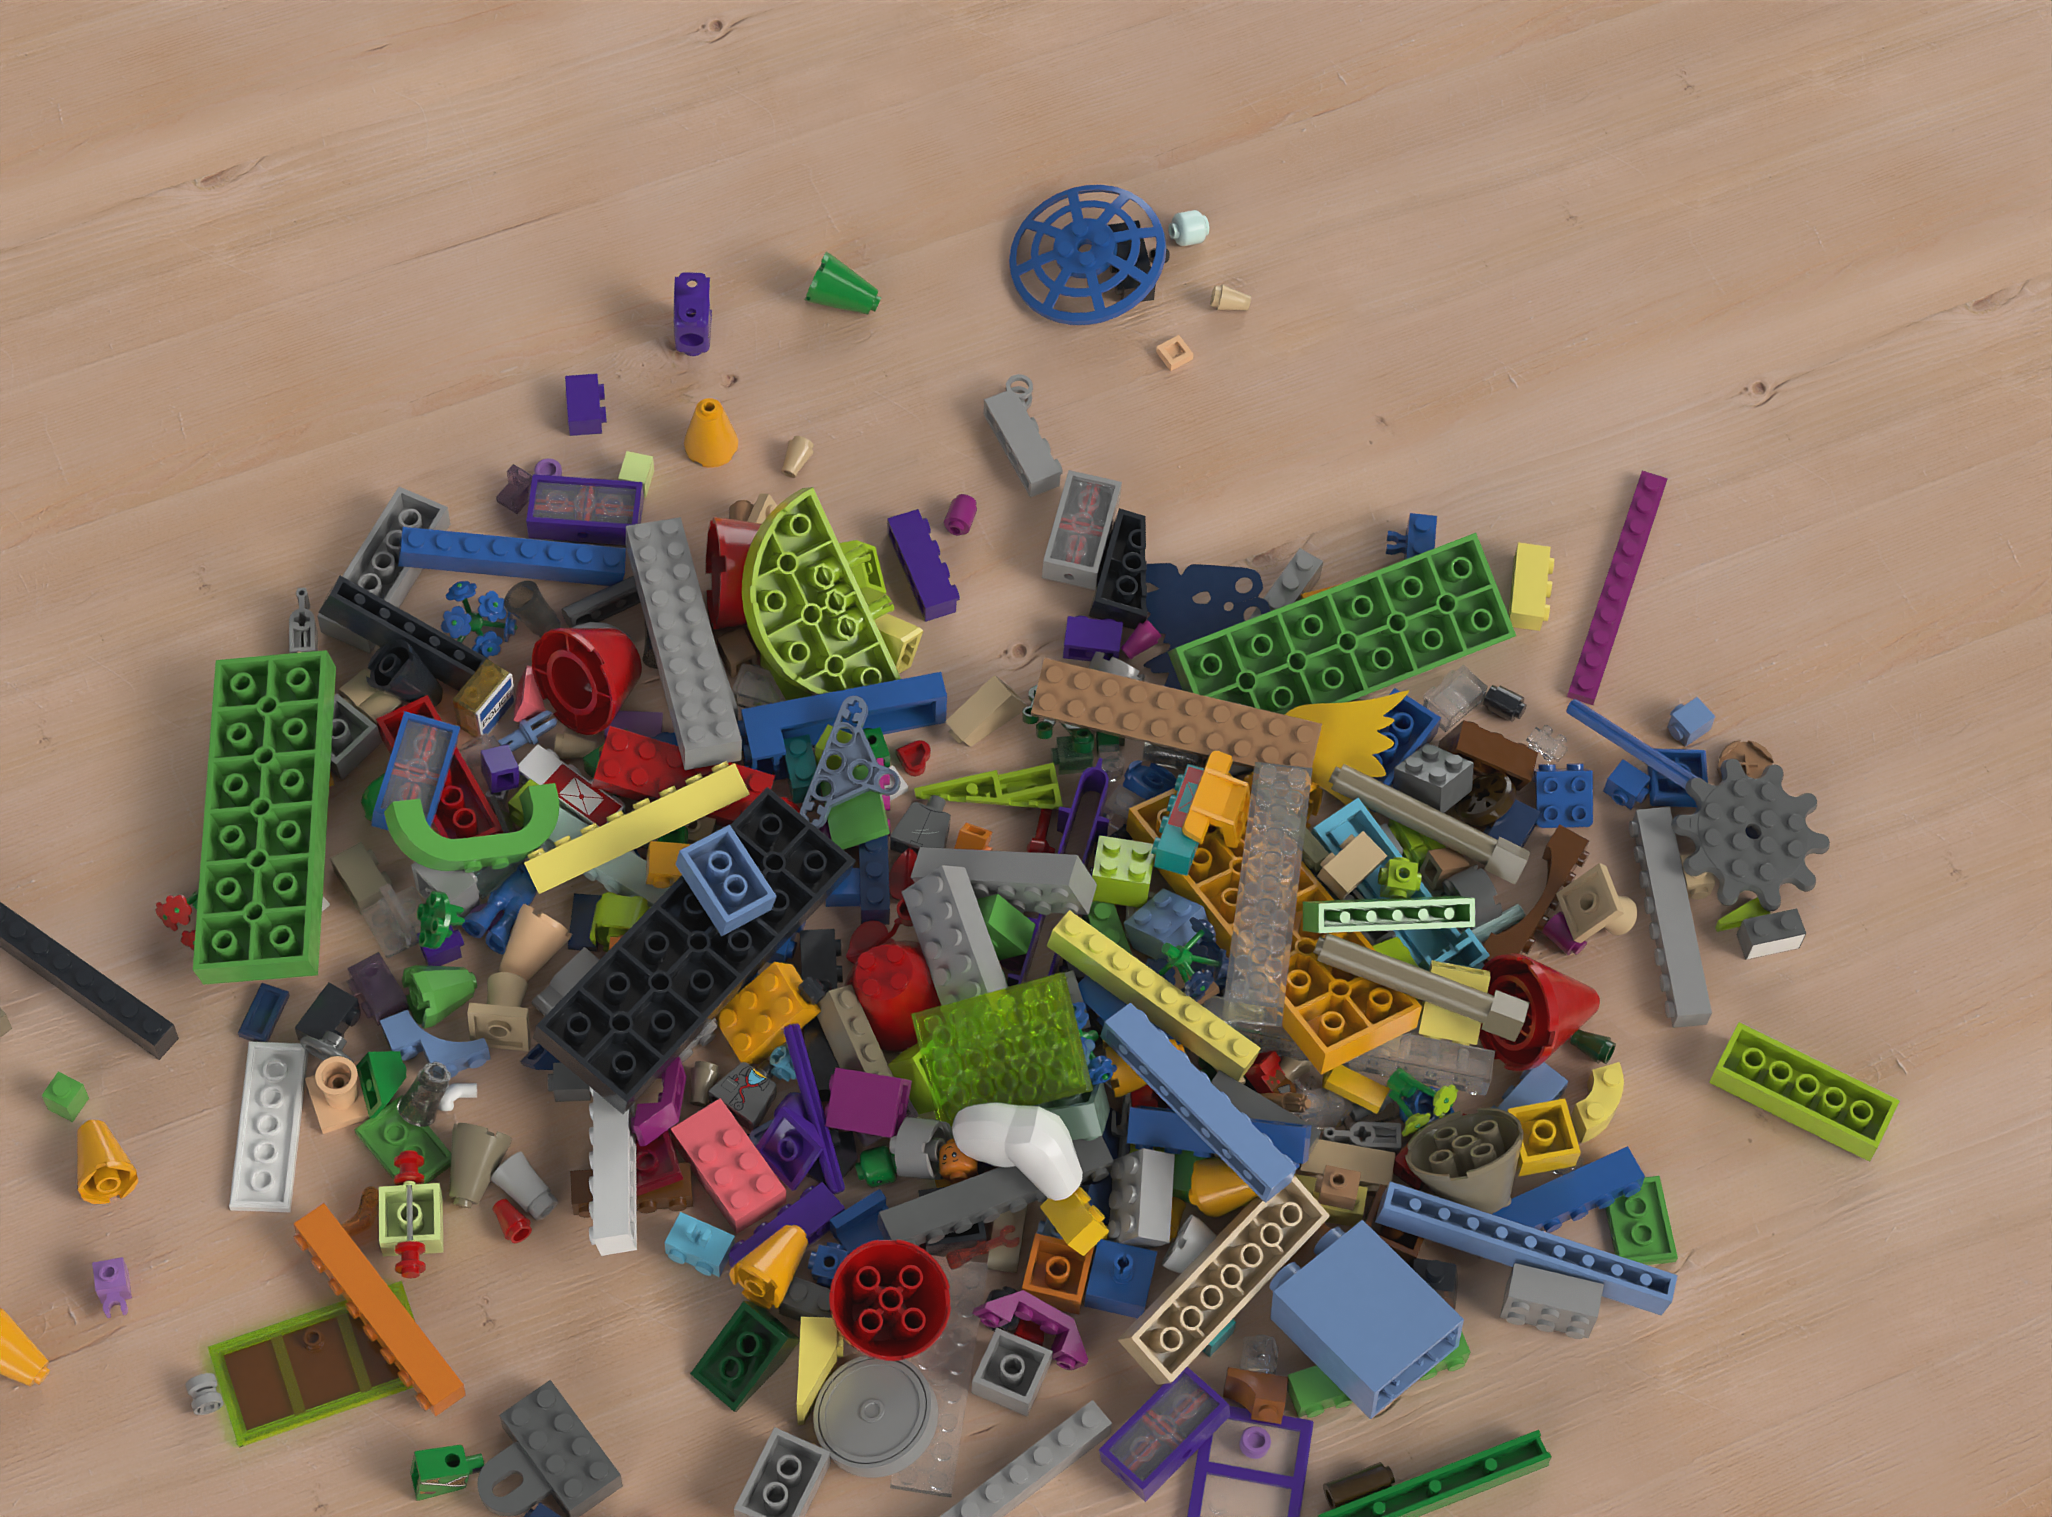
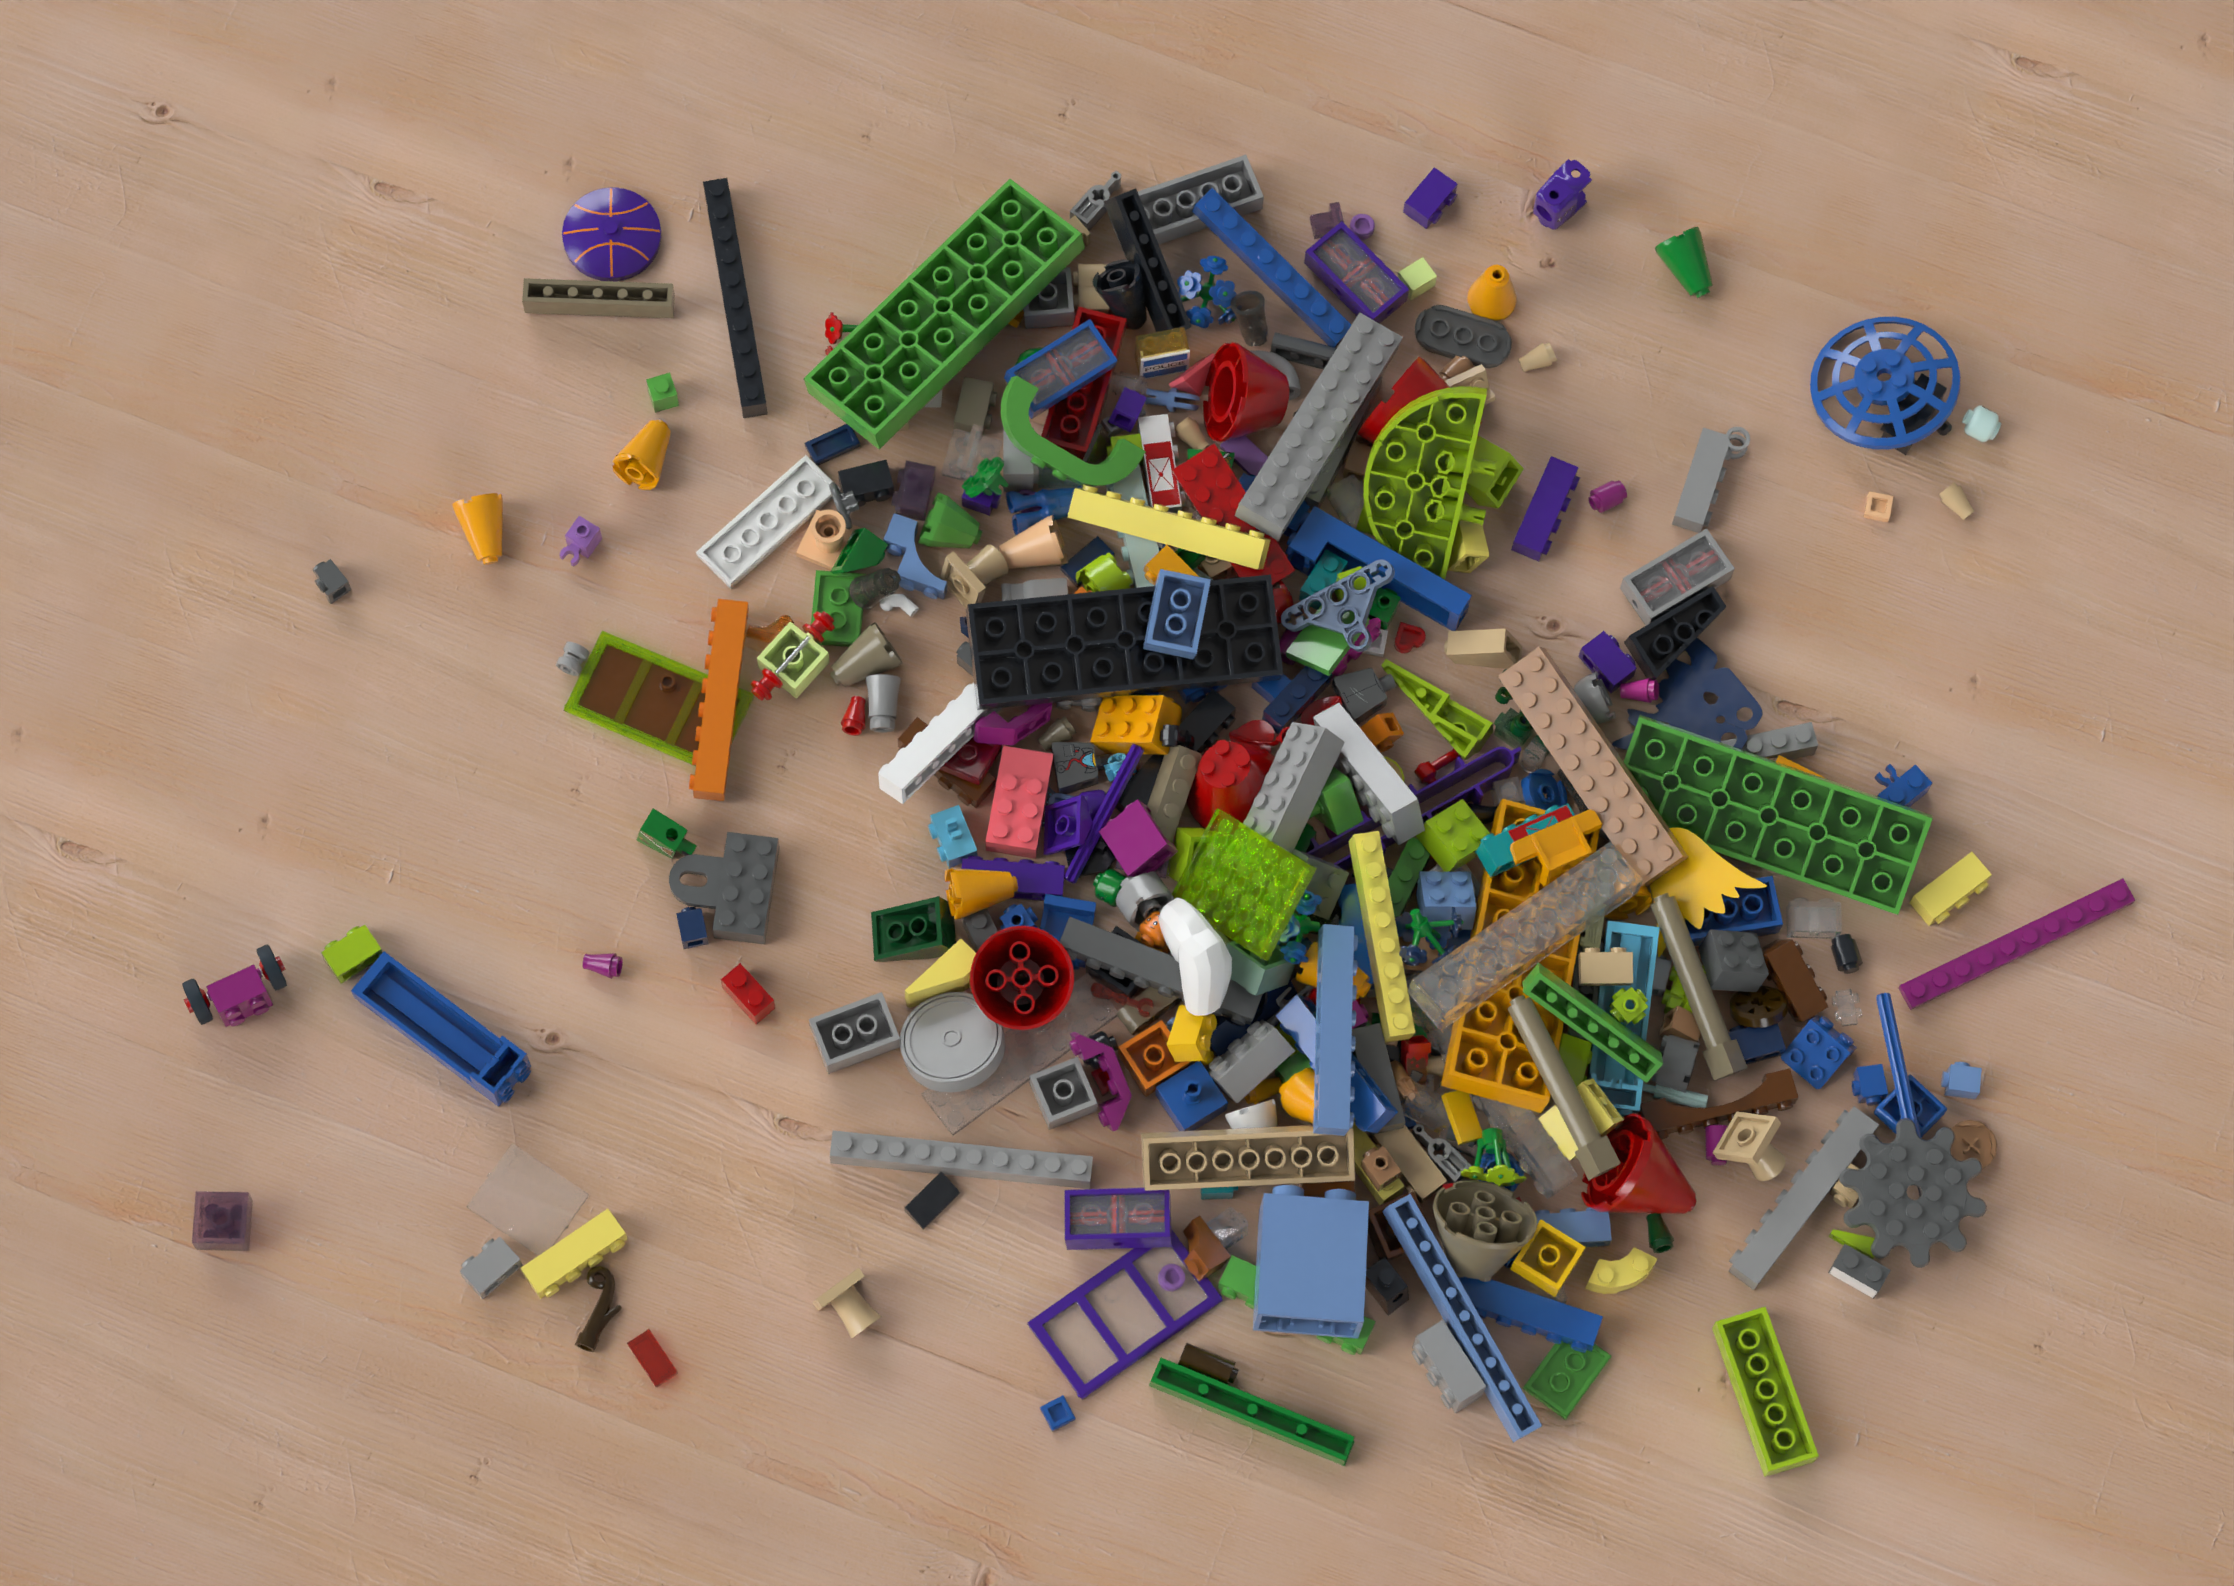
camera: 45 degrees right, 10 degrees up
(715, 488) = (1461, 333): none -> dark grey tile

